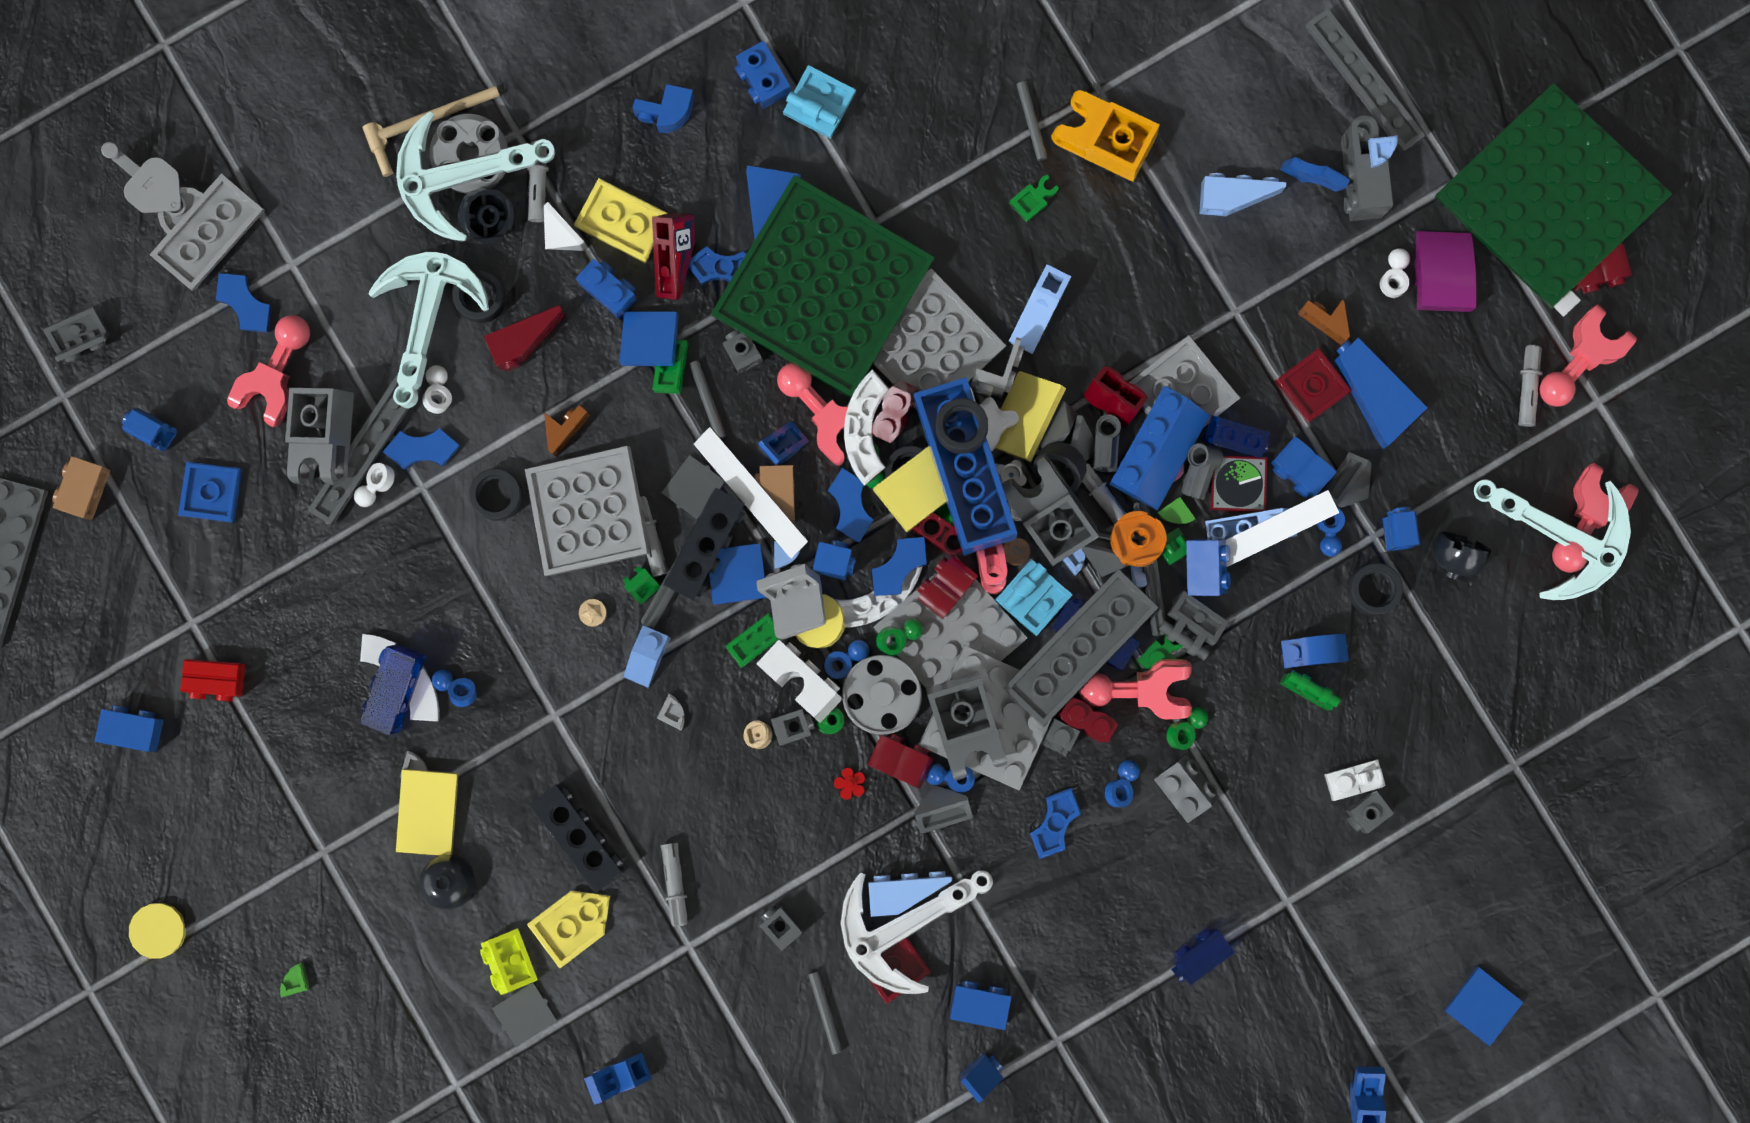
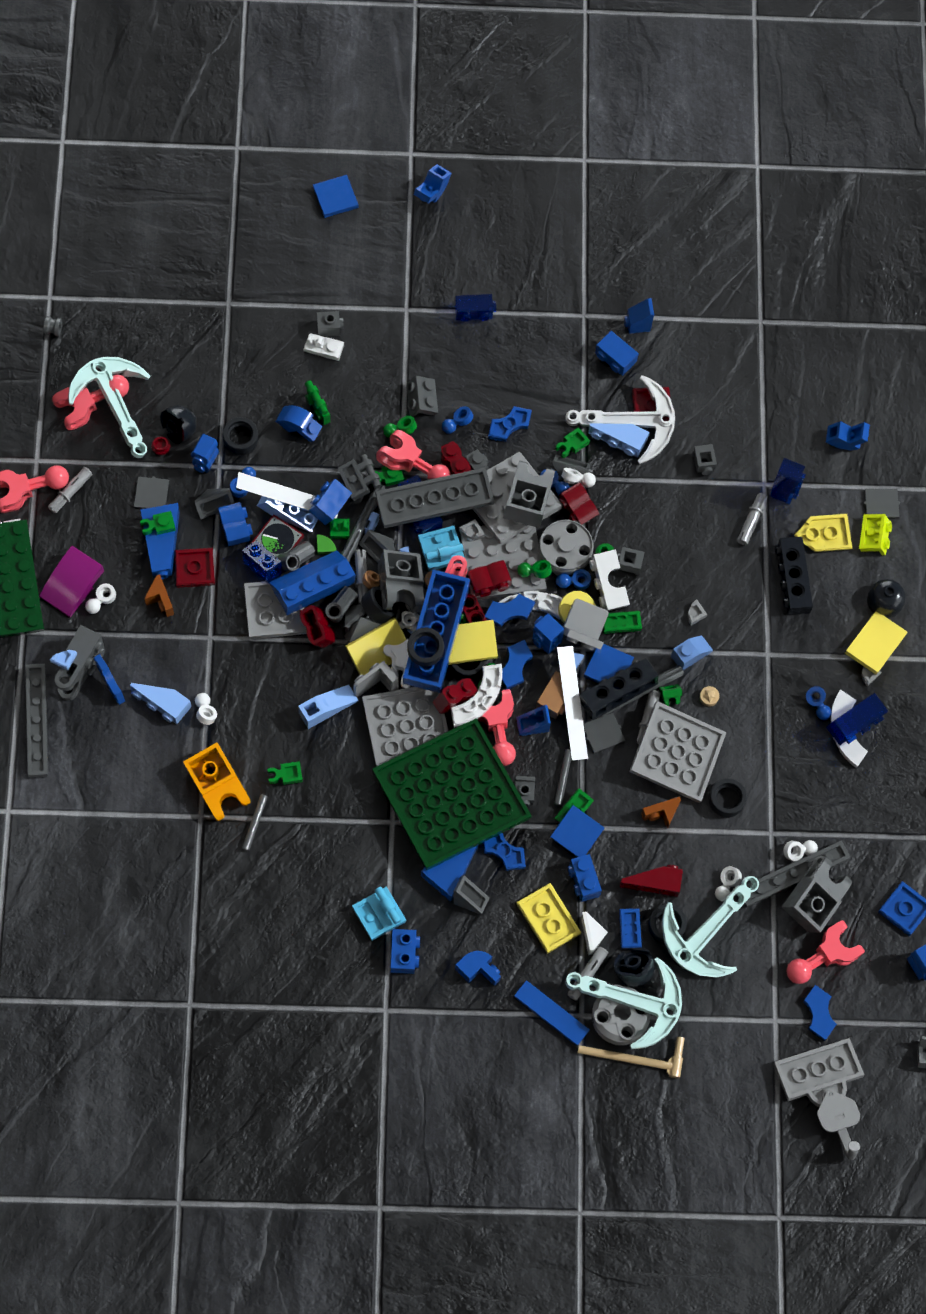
camera: 155 degrees left, 15 degrees down
(409, 450) = (750, 851): blue tile -> none
(519, 264) = (630, 928): none -> blue plate
(552, 112) = (551, 1013): none -> blue tile
(653, 954) = (788, 481): none -> clear blue brick
(672, 252) = (528, 877): dark red slope -> none
(725, 185) = (469, 896): none -> dark grey slope
(758, 734) = (652, 570): tan tile -> none
(825, 1012) = (706, 404): dark grey bar -> none
(850, 783) = (615, 513): red plant -> none
(930, 794) = (571, 476): none -> white plate
(958, 848) = (573, 441): none -> green plate
(1009, 641) = (472, 530): none -> light grey tile
(1092, 491) = (371, 579): none -> medium nougat plate
(1144, 525) = (354, 529): orange plate -> none
(1189, 226) = (206, 713): none -> white plate
(1389, 403) = (161, 523): none -> green plate
(1430, 447) = (151, 492): none -> dark grey piece
(1462, 515) = (160, 445): none -> dark red plate
(1706, 586) = (52, 326): none -> dark grey wheel

